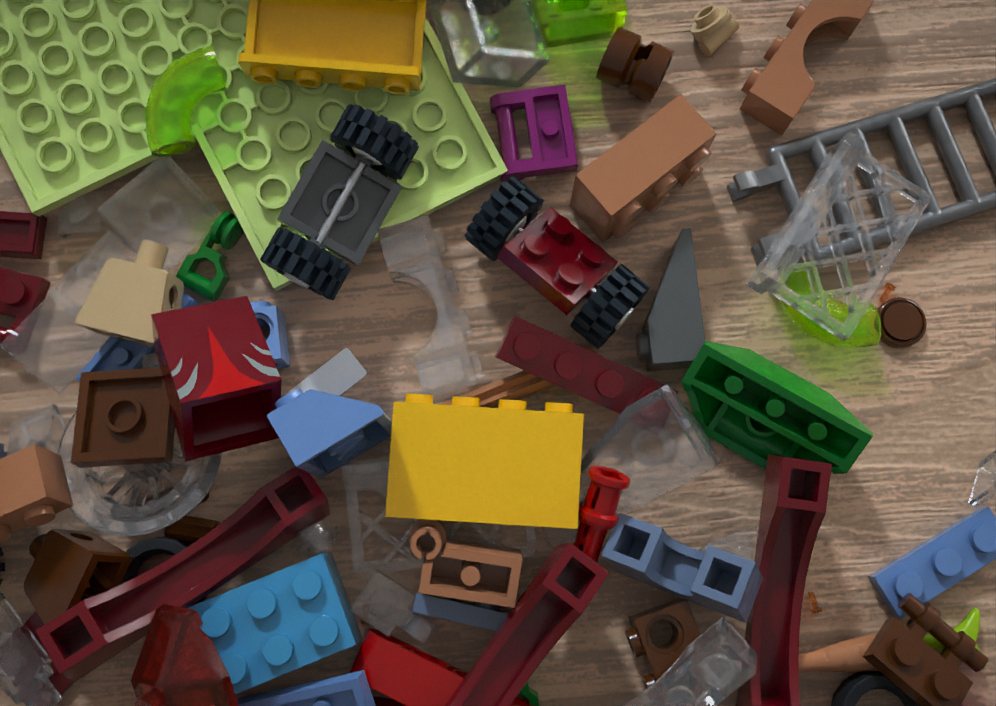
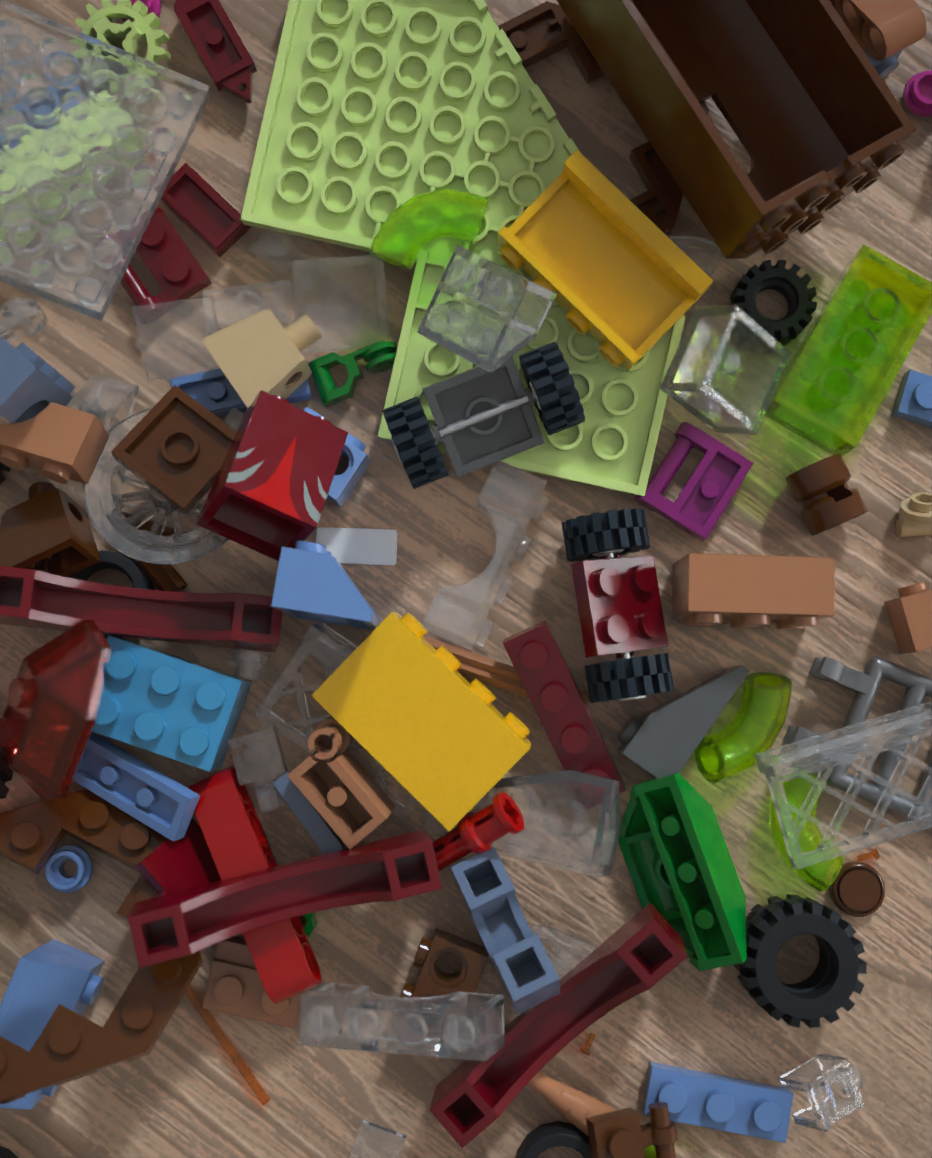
camera: 40 degrees right, 5 degrees up
(275, 122) = (484, 310): none -> clear slope
(728, 273) = (750, 732): none -> clear neon green cylinder
(940, 393) = (830, 982): none -> black tyre

